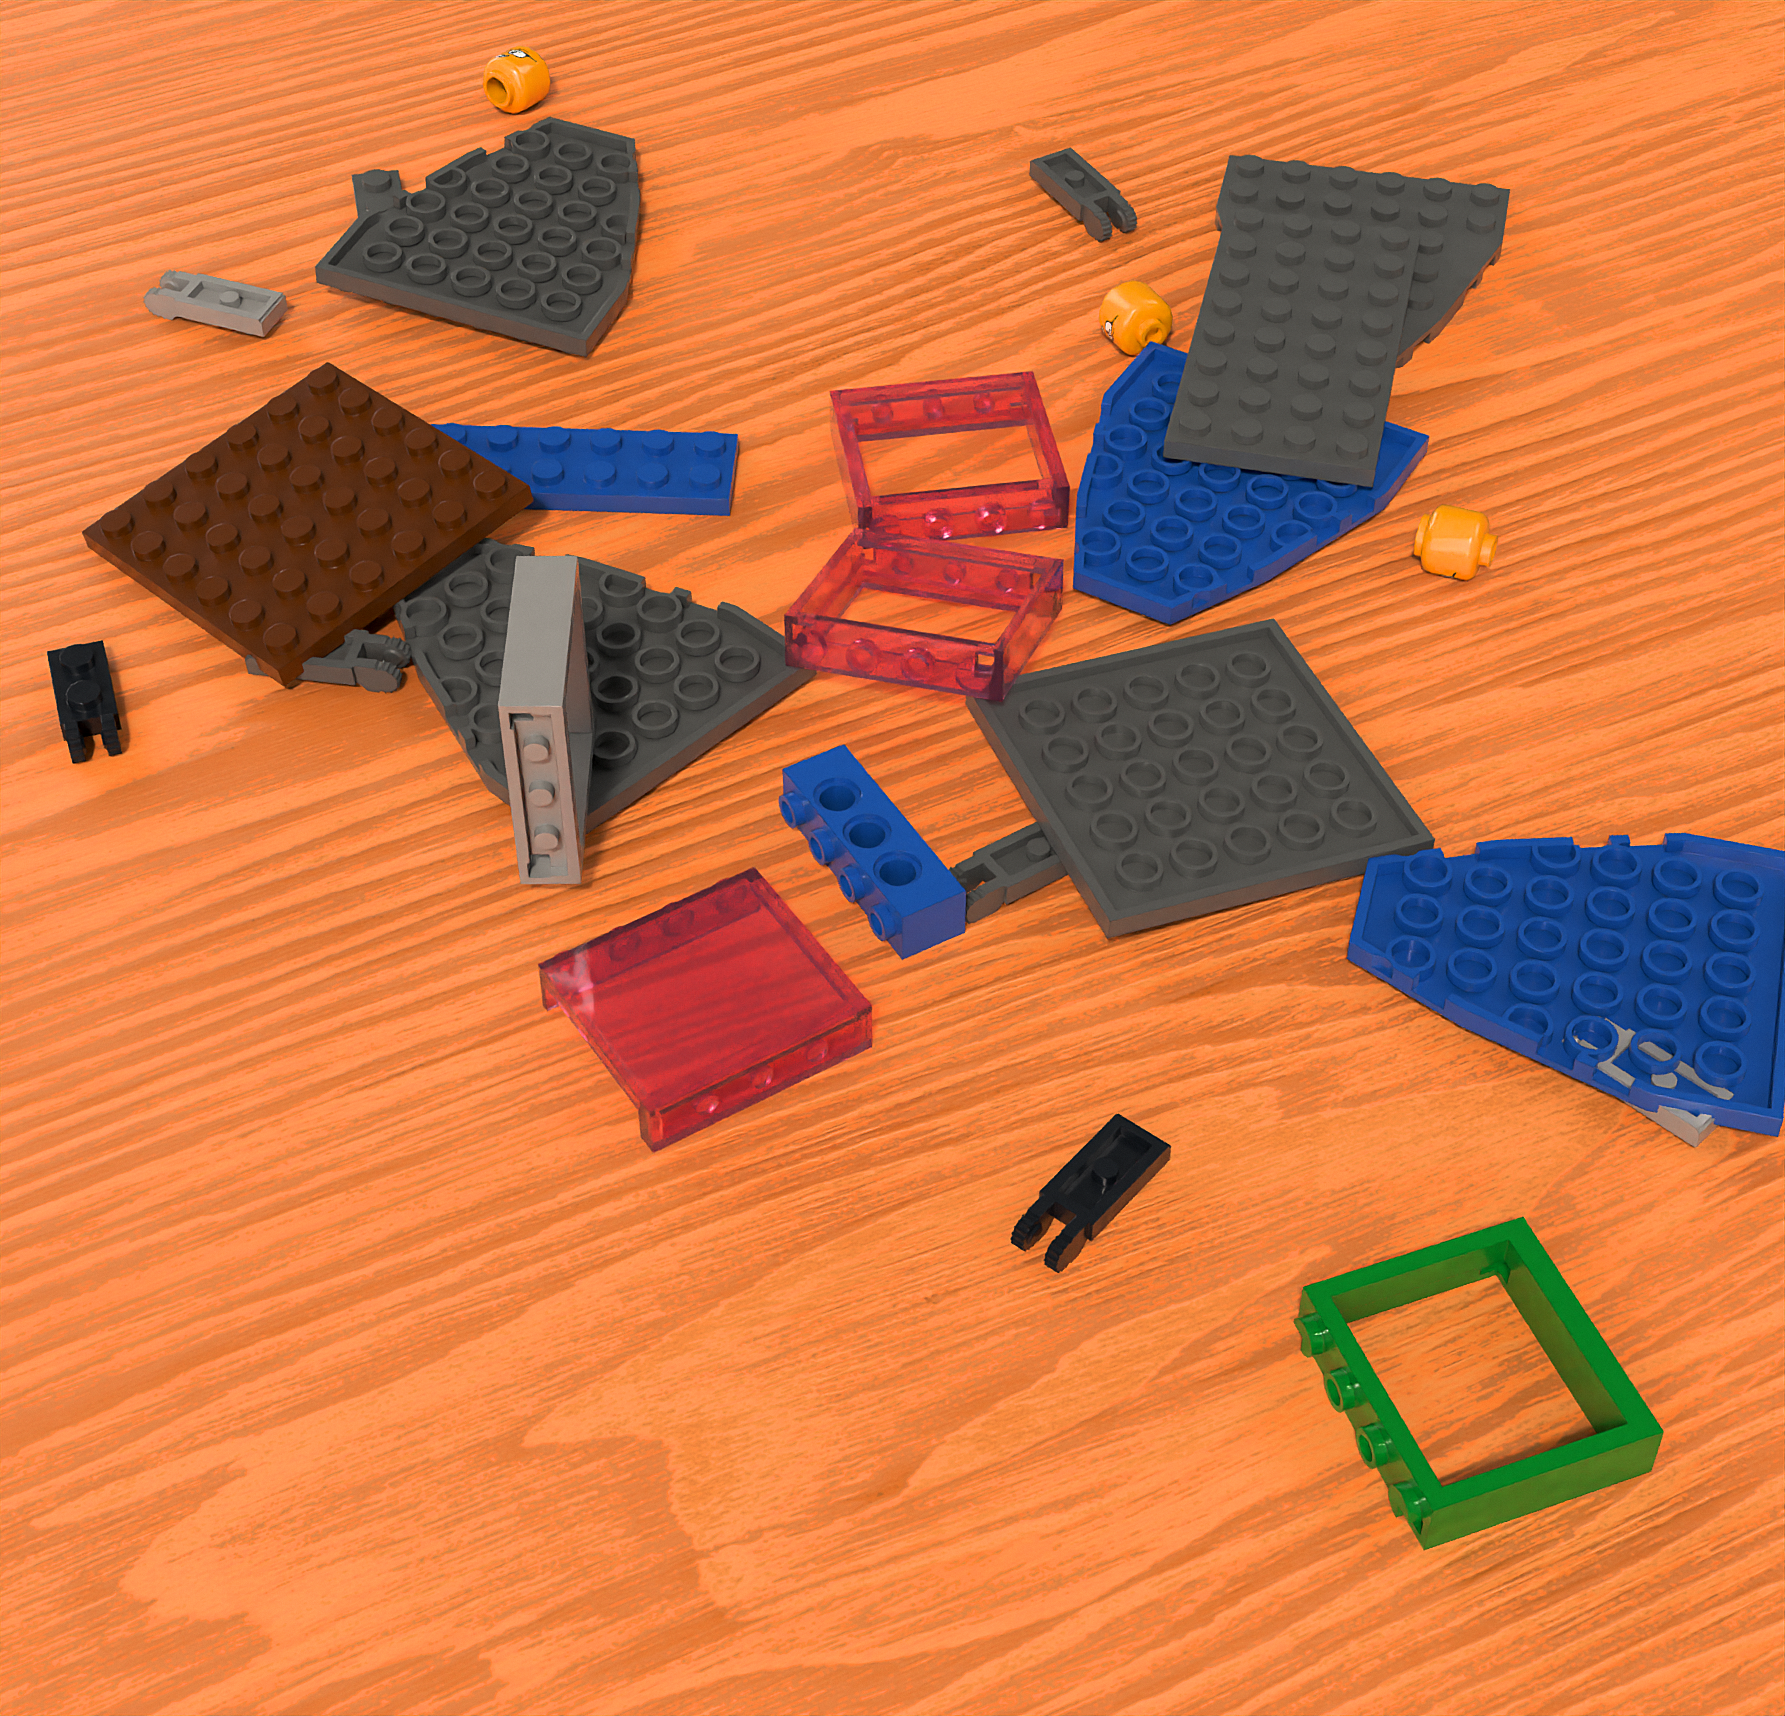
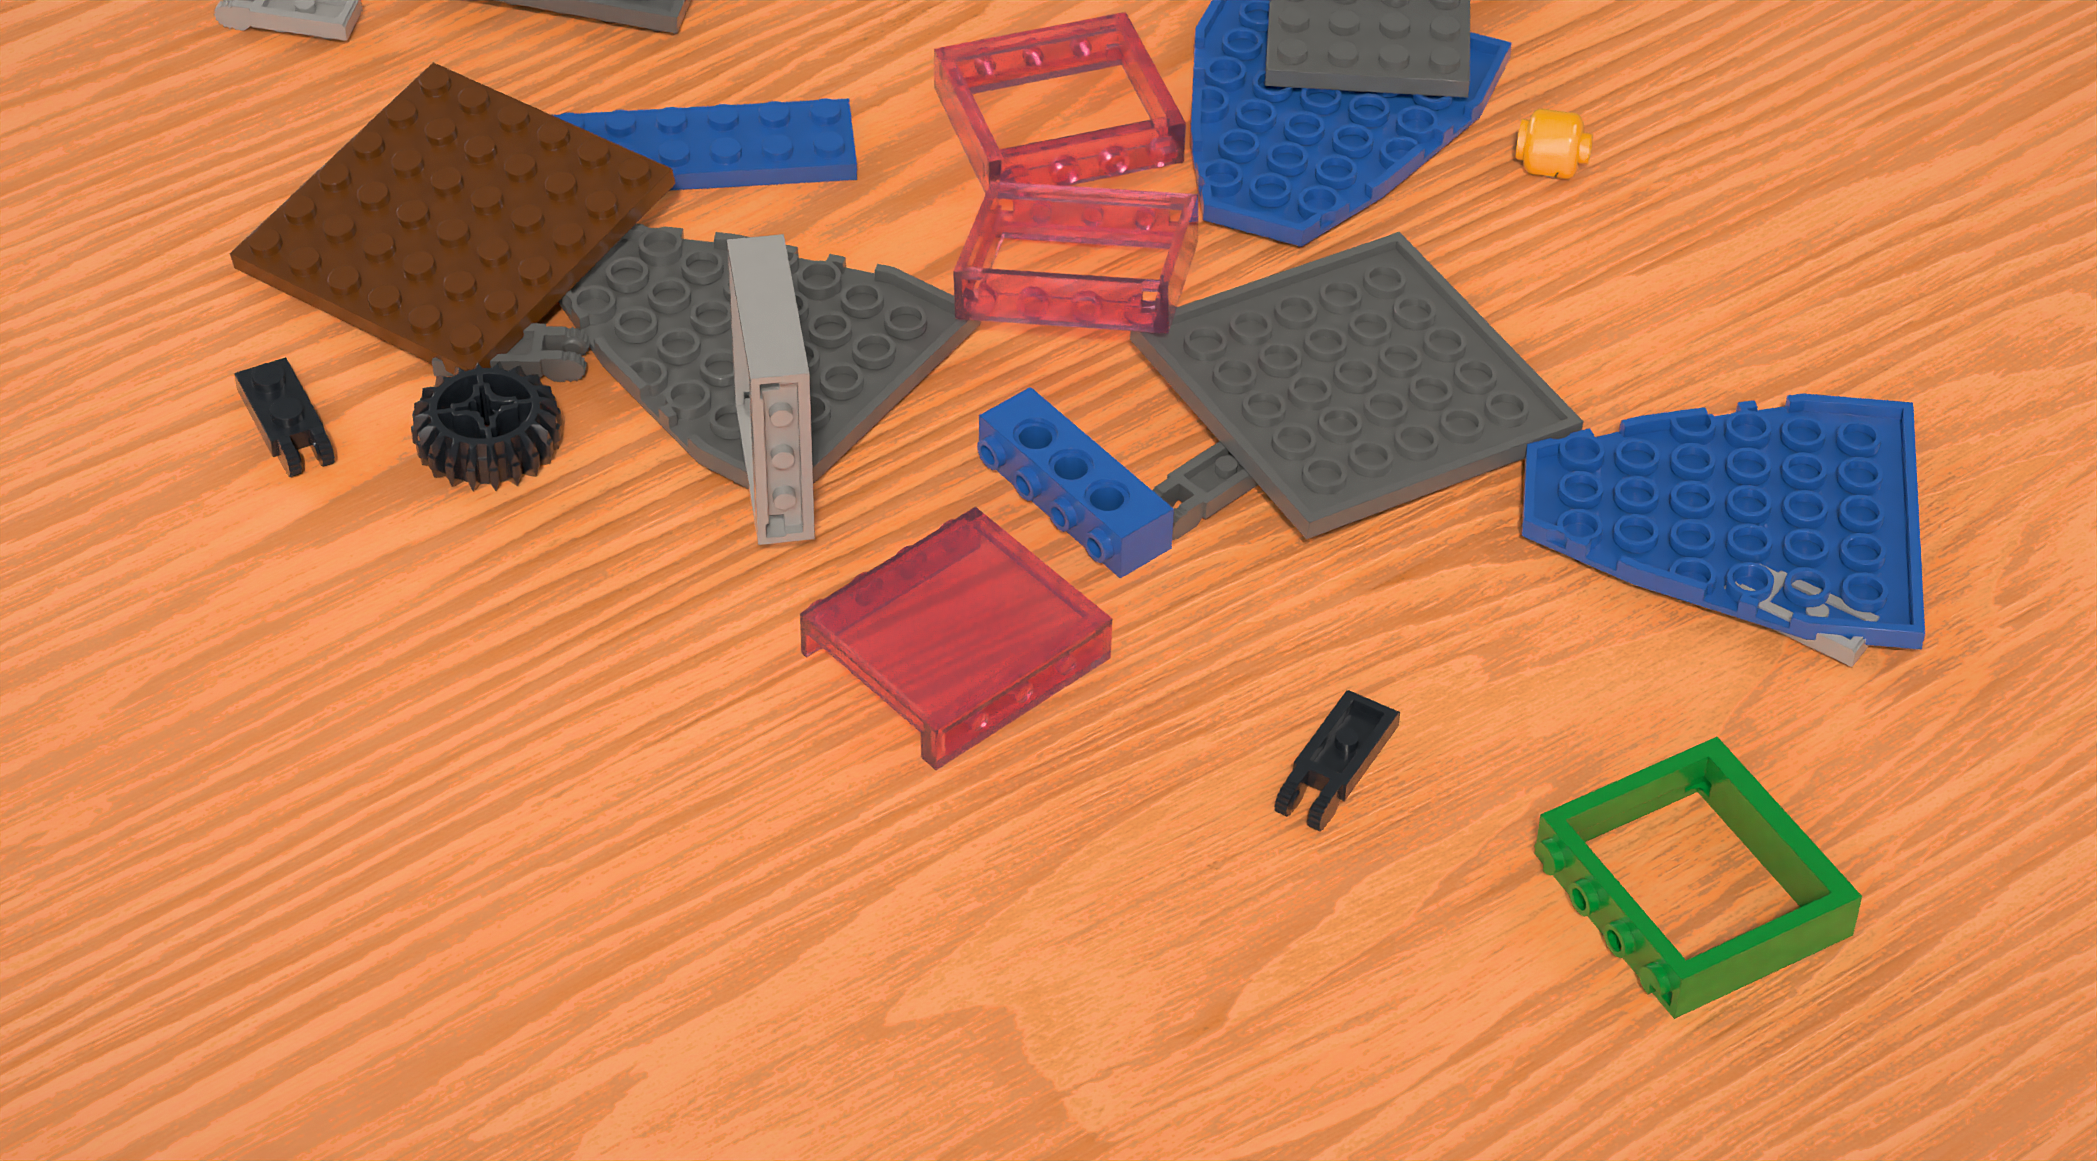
camera: 10 degrees left, 0 degrees up
(279, 730) = (453, 431): none -> black gear

